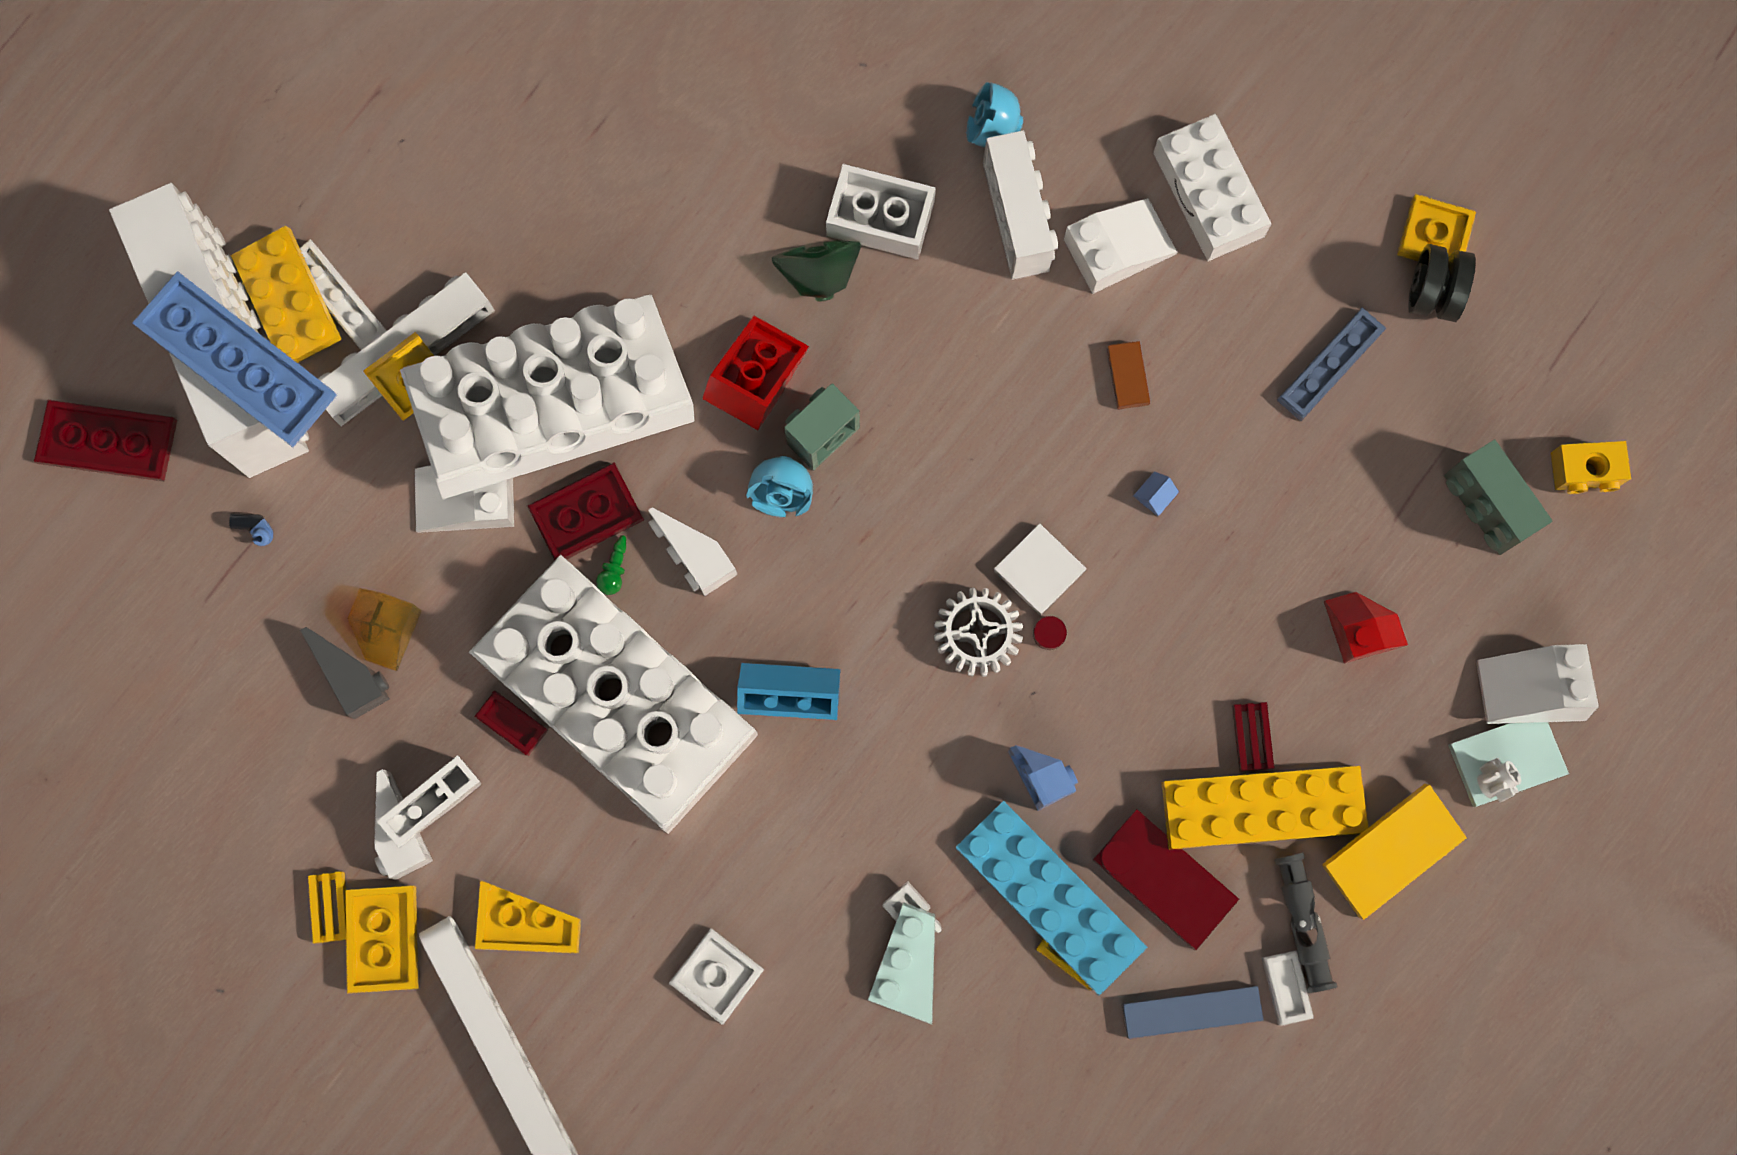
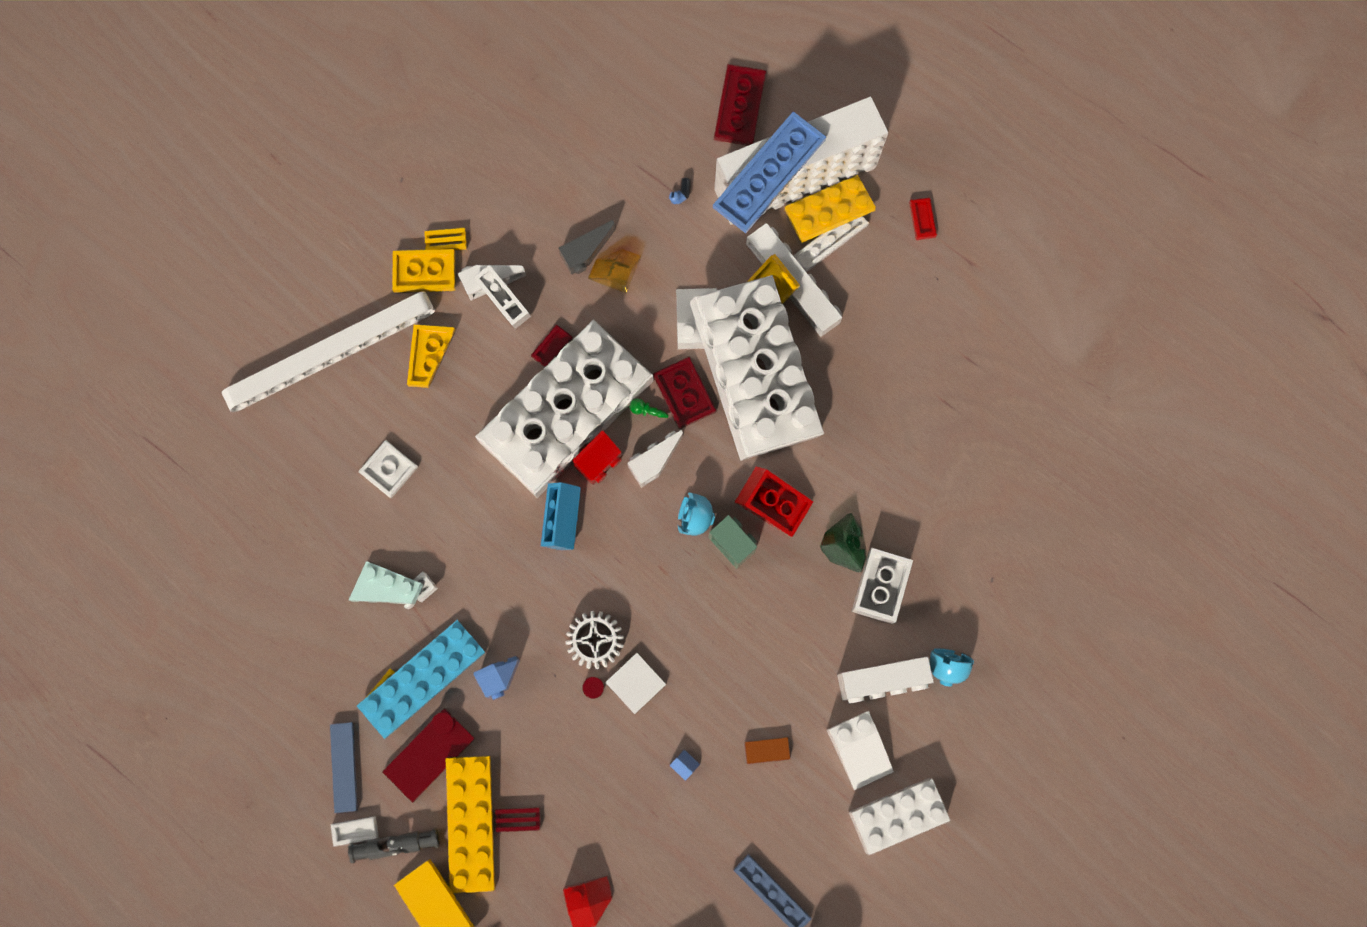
camera: 90 degrees right, 0 degrees up
(304, 160) = (923, 218): none -> red tile
(695, 637) = (597, 458): none -> red slope

